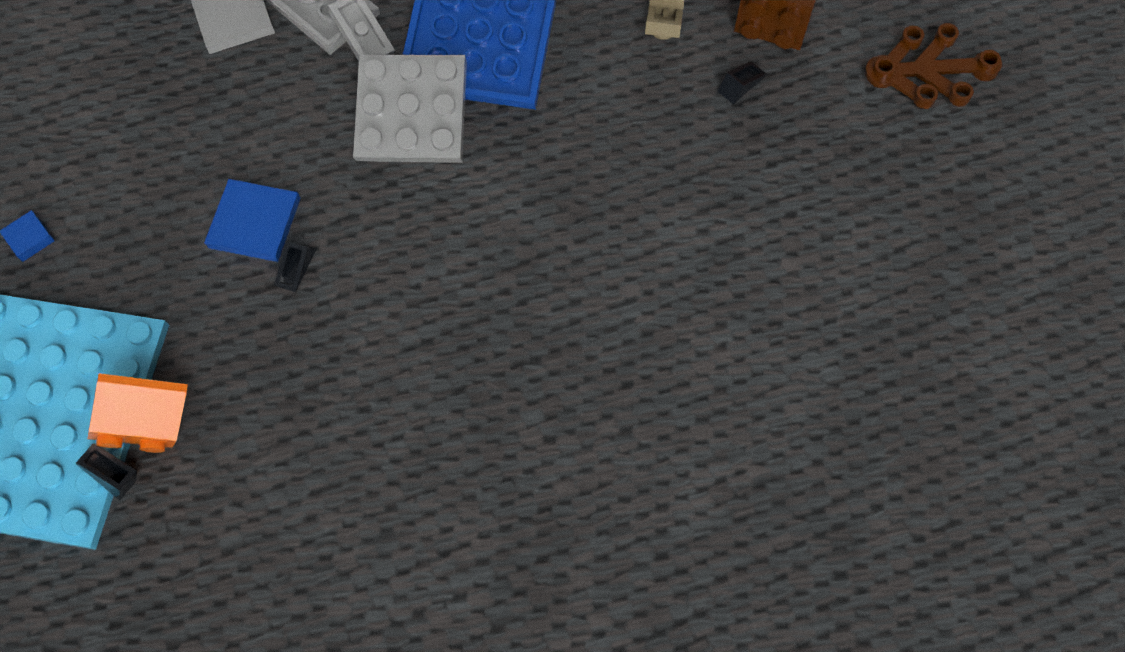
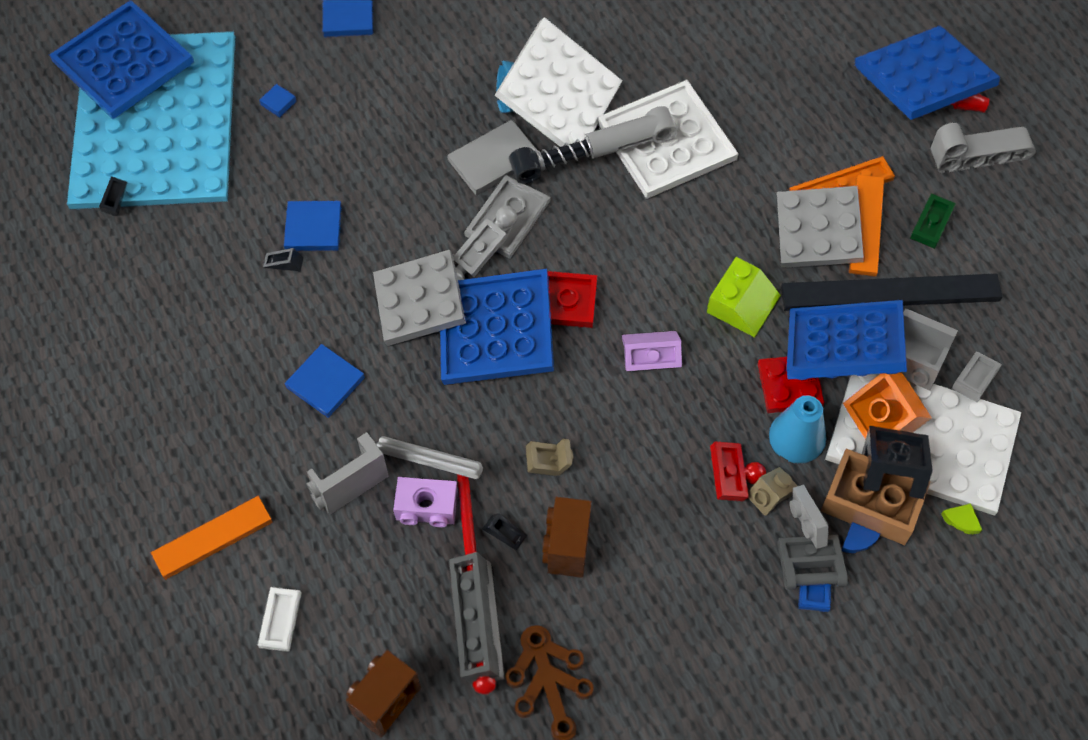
camera: 75 degrees right, 5 degrees down
(136, 412) = (147, 197): slope -> none
(493, 238) = (324, 380): none -> blue tile
(638, 131) = (430, 457): none -> light grey axle
(640, 186) = (351, 479): none -> light grey panel
(688, 404) = (211, 537): none -> orange tile
(698, 128) = (413, 491): none -> lavender brick
(813, 335) = (279, 619): none -> white tile
(835, 112) = (475, 606): none -> dark grey piece
(942, 217) = (382, 692): none -> reddish brown brick

